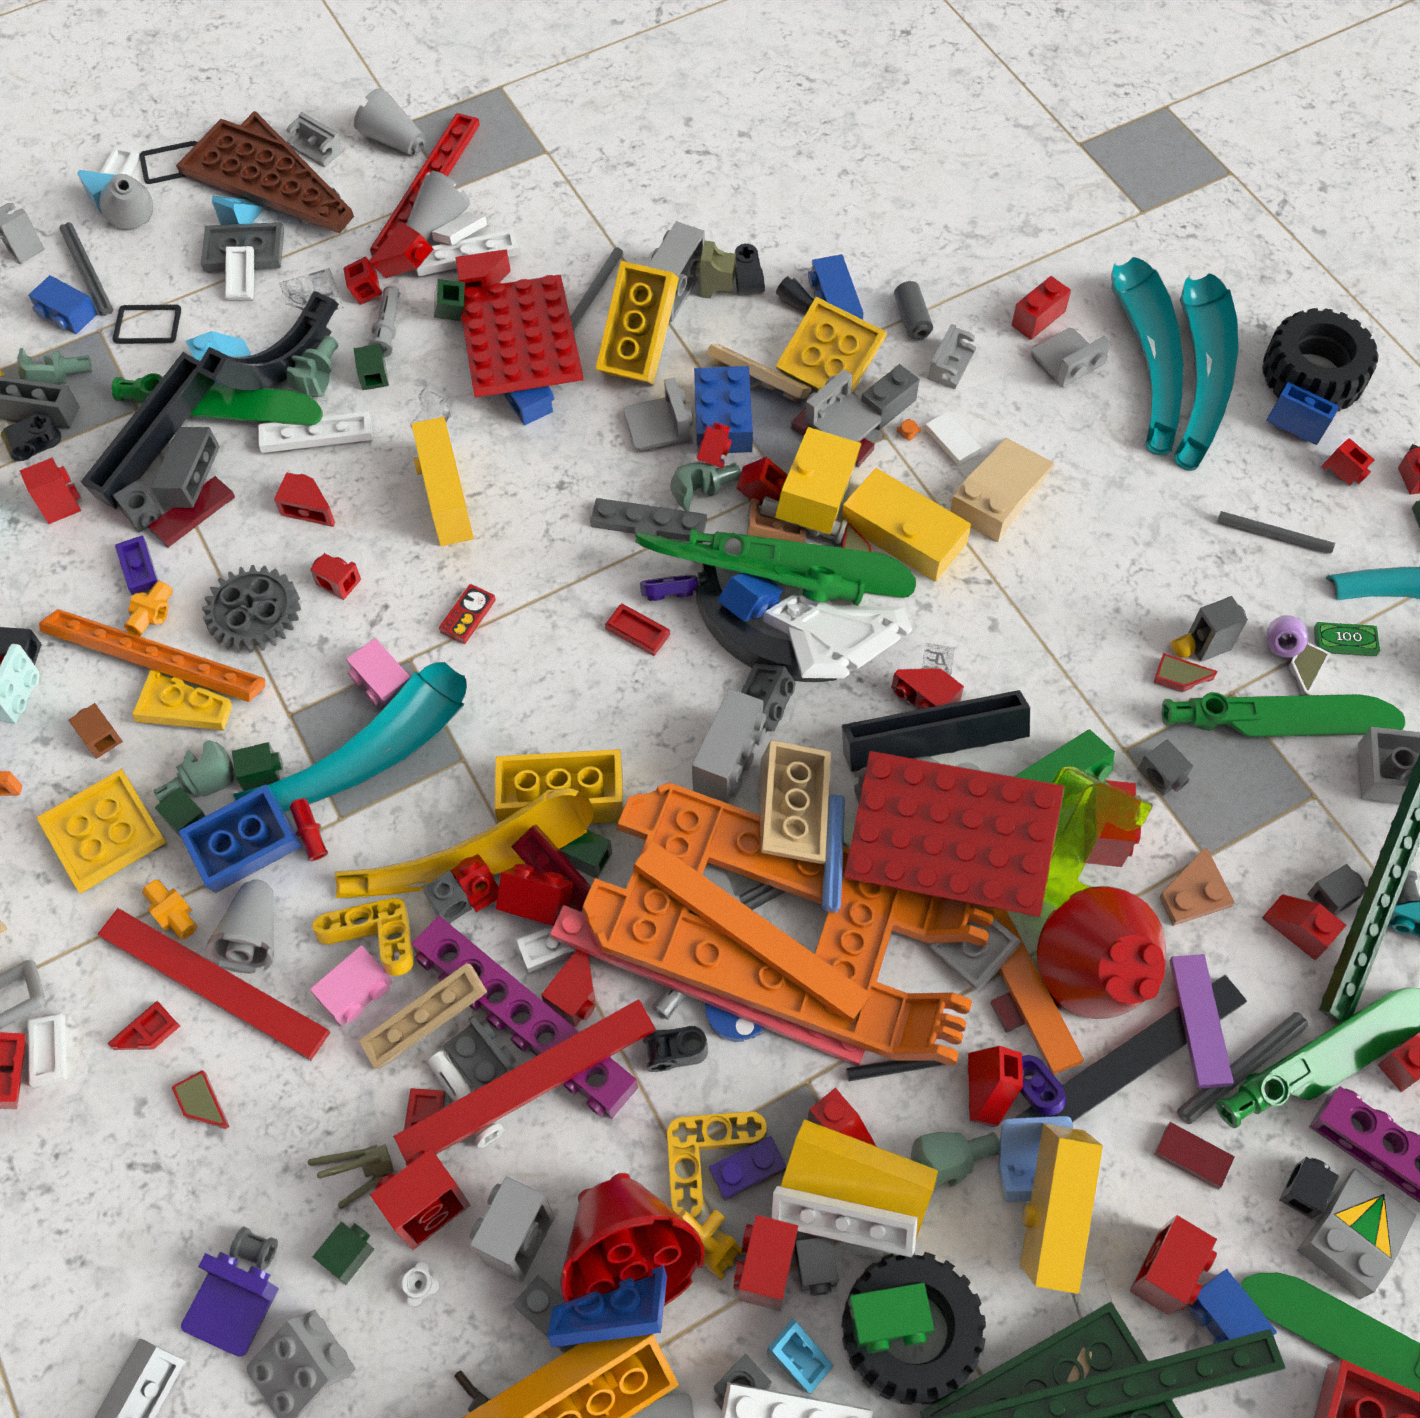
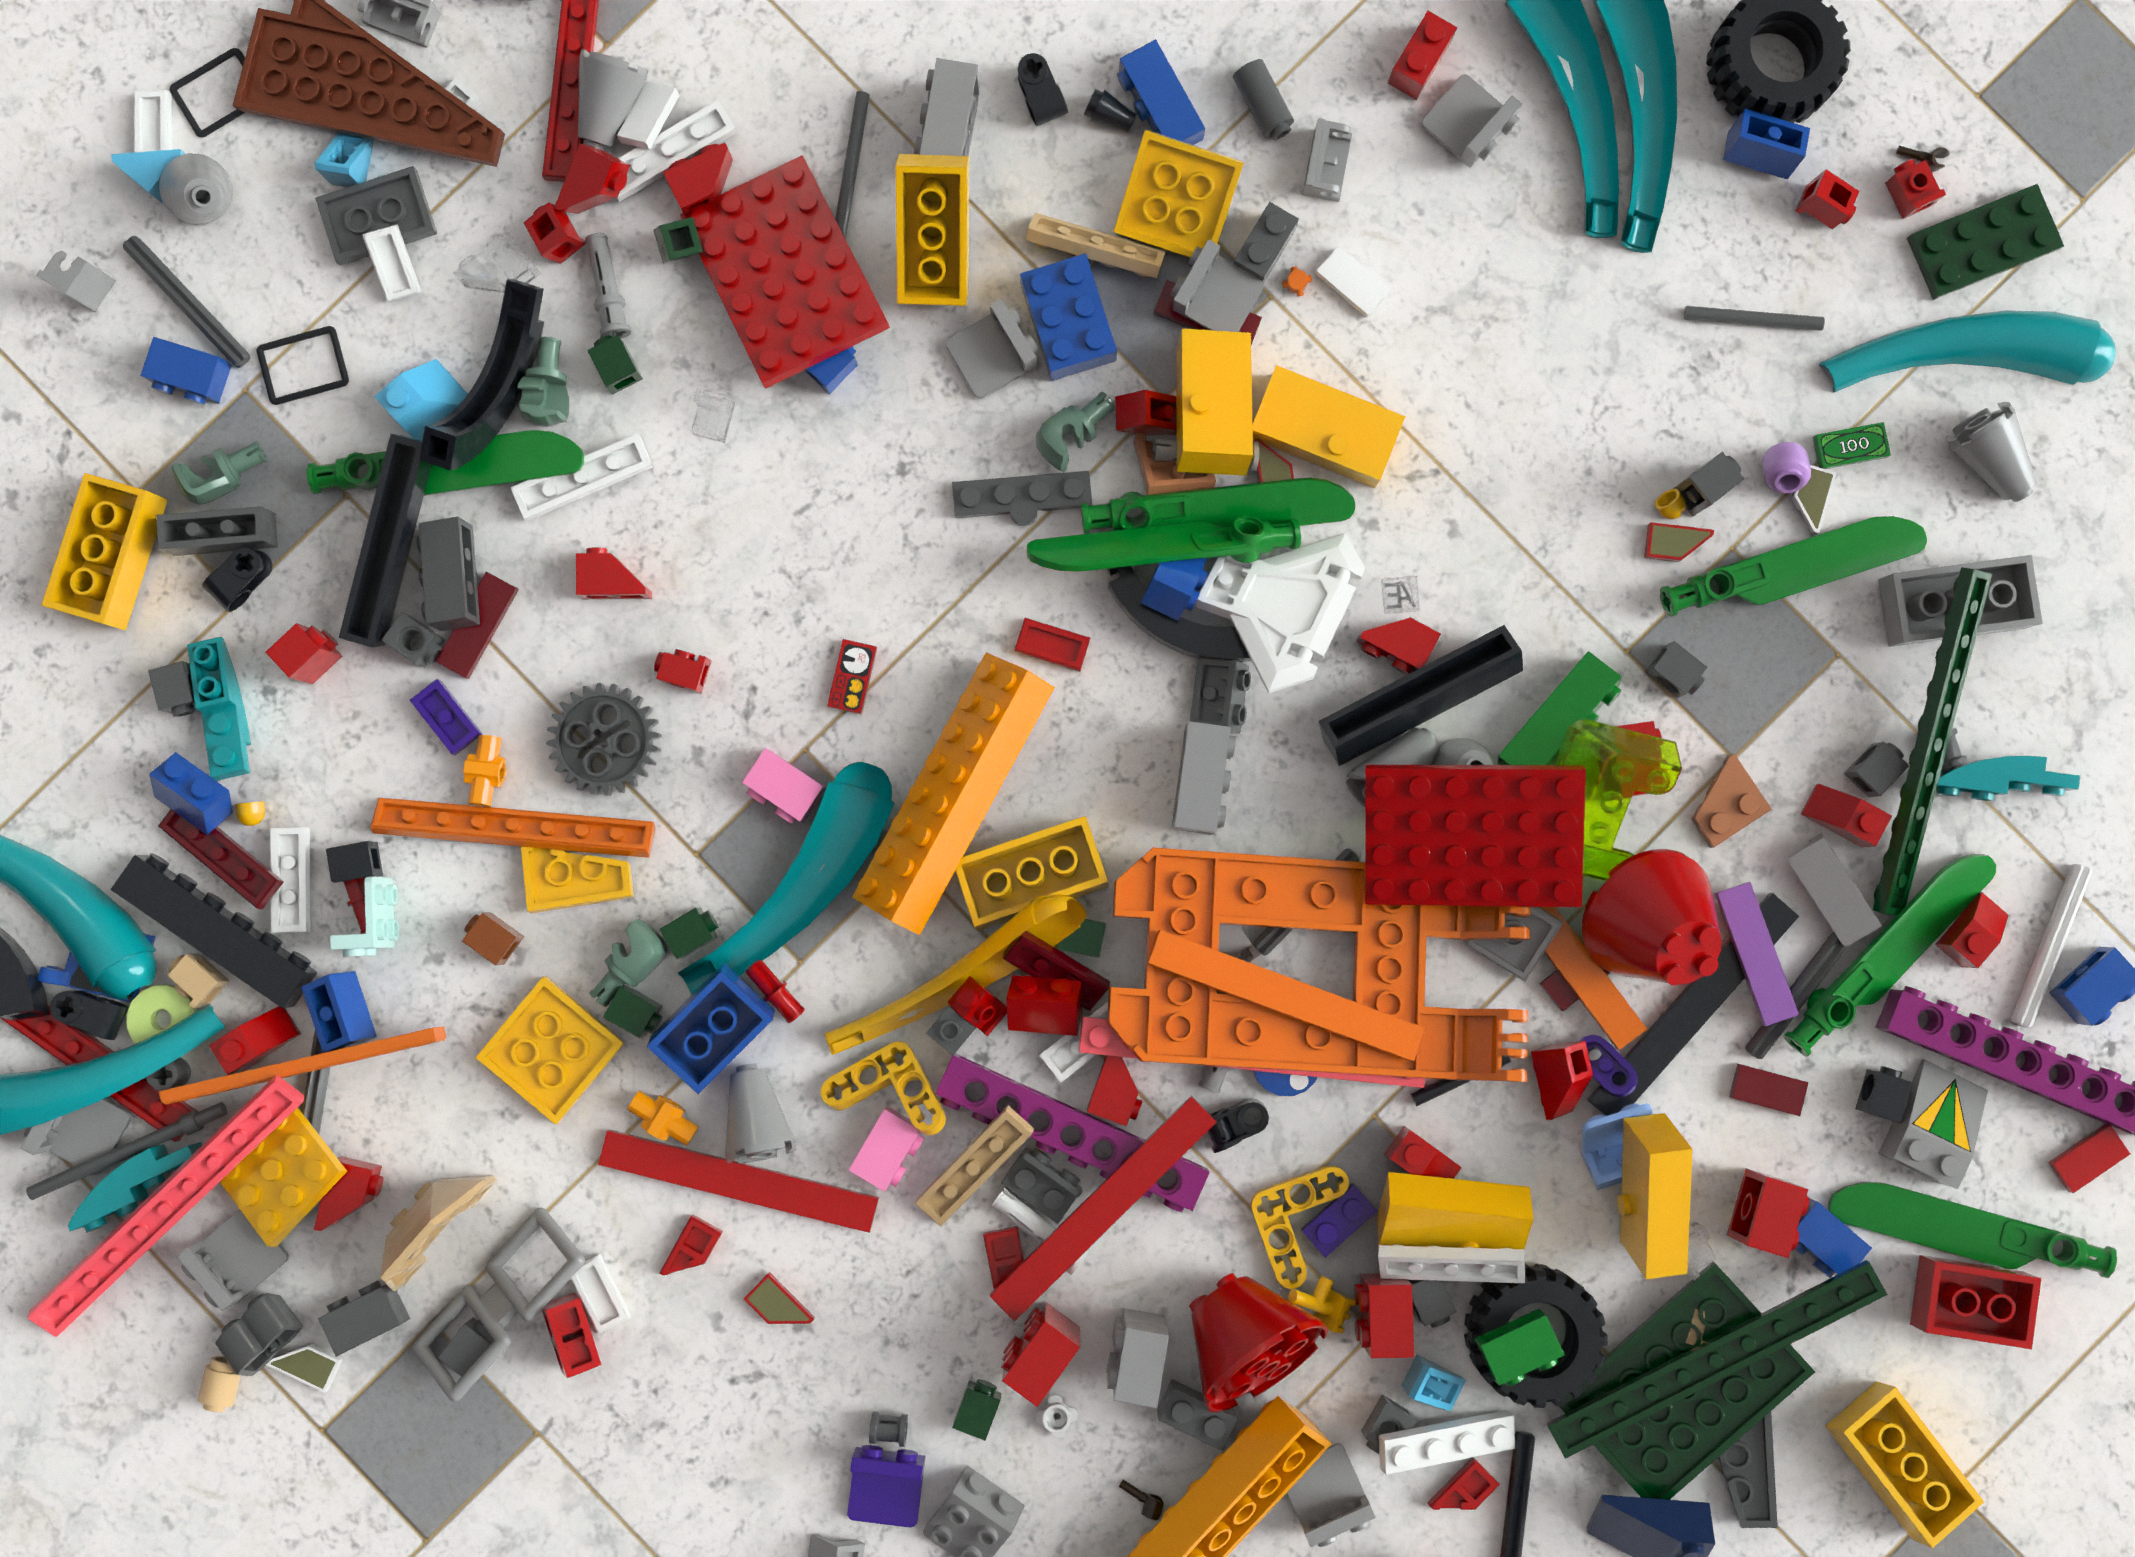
camera: 15 degrees left, 25 degrees up
(373, 1160) = (975, 1319): olive plant -> none
(441, 481) = (765, 516): yellow brick -> none
(513, 707) = (953, 792): none -> light orange brick
(622, 1313) = (1261, 1413): blue wing -> none
(657, 588) = (1068, 585): dark purple plate -> none
(714, 444) = (1076, 385): red brick -> none
(715, 270) = (1002, 108): olive brick -> none
(794, 801) = (1291, 832): tan slope -> none
(834, 855) = (1347, 877): medium blue axle -> none
(953, 1154) = (1535, 1160): sand green piece -> none
(1000, 488) = (1426, 339): tan slope -> none
(1284, 984) = (1834, 891): none -> light grey panel

